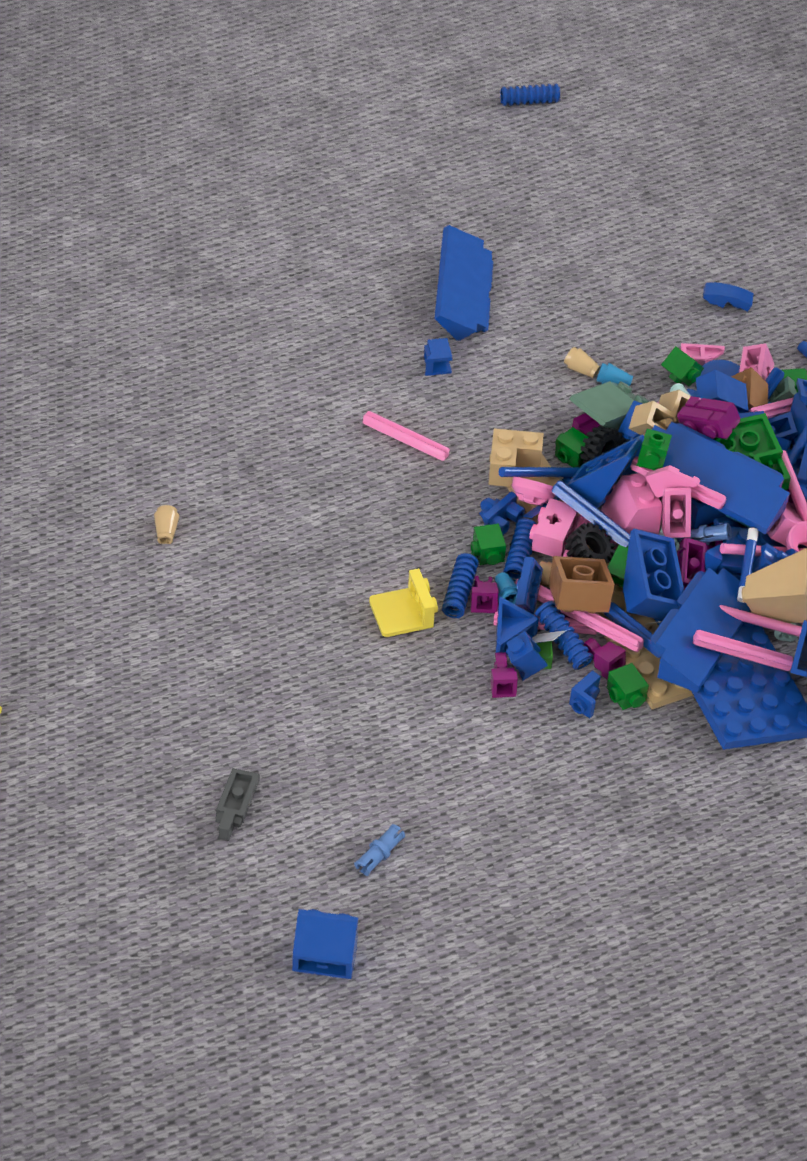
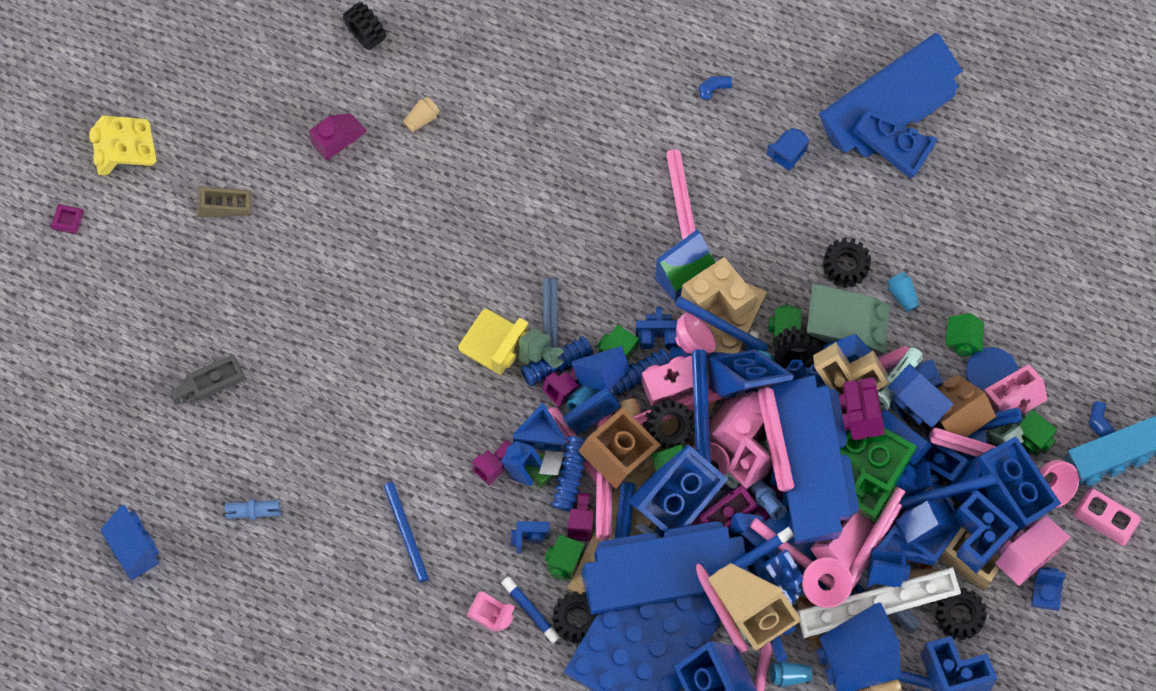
camera: 50 degrees right, 20 degrees up
(55, 490) = (364, 25): none -> black tyre
(81, 702) = (222, 211): none -> dark tan slope
(120, 585) = (335, 134): none -> magenta slope
(338, 361) = (713, 83): none -> blue arm
(411, 562) = (550, 310): none -> sand blue axle
(441, 581) = (535, 346): none -> sand green piece
(470, 464) = (683, 263): none -> blue slope
(498, 303) = (897, 144): none -> blue wing
(501, 558) = (601, 369): none -> blue slope
(502, 770) = (406, 532): none -> blue bar
(558, 379) = (851, 249): none -> black tyre
(581, 362) = (895, 255): tan cone -> none
(629, 761) = (491, 612): none -> bright pink bracket
(648, 740) = (531, 610): none -> blue bar
(654, 449) = (778, 397): green brick -> none
(669, 478) = (761, 430): bright pink tile -> none
(681, 726) = (560, 614): none -> black tyre
(702, 353) = (1005, 334): bright pink tile -> none
(721, 293) = (1097, 299): blue slope -> none
(742, 650) = (663, 612): bright pink axle -> none

